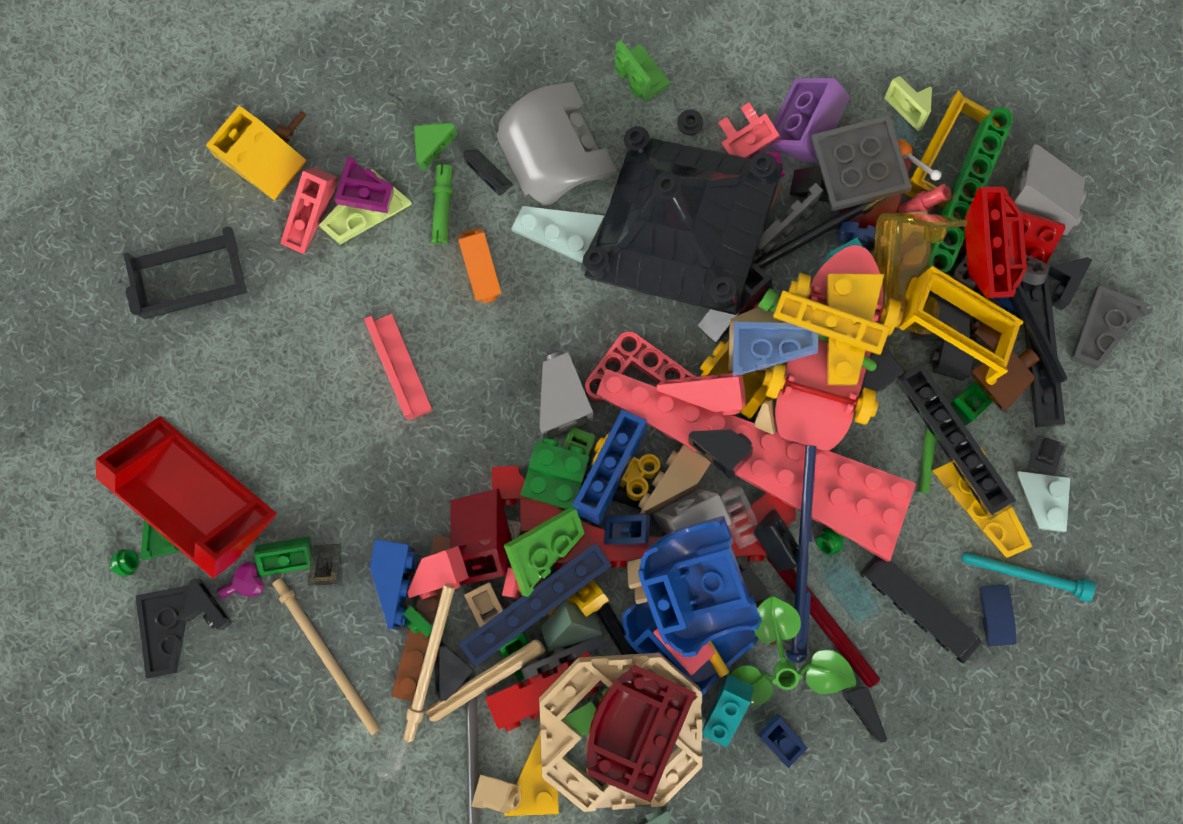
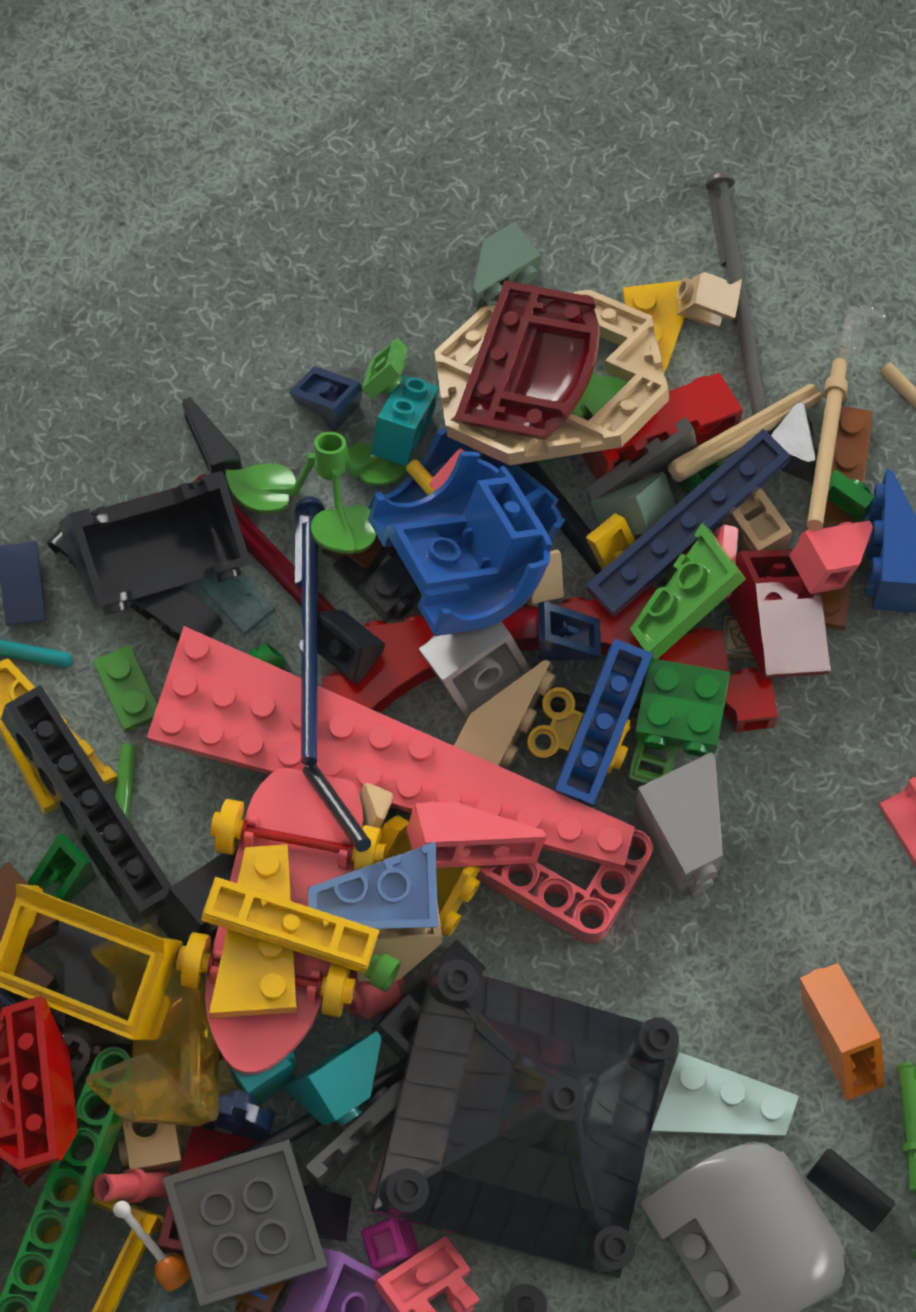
camera: 175 degrees right, 10 degrees down
(723, 449) = (439, 748): black slope -> none
(739, 753) = (385, 369): none -> bright green plate
(742, 502) = (419, 693): clear slope -> none
(794, 407) = (337, 808): none -> black bar
(797, 251) = (339, 1082): none -> teal slope
(912, 625) = (156, 542): none -> black windscreen
(925, 533) = (126, 688): none -> bright green plate

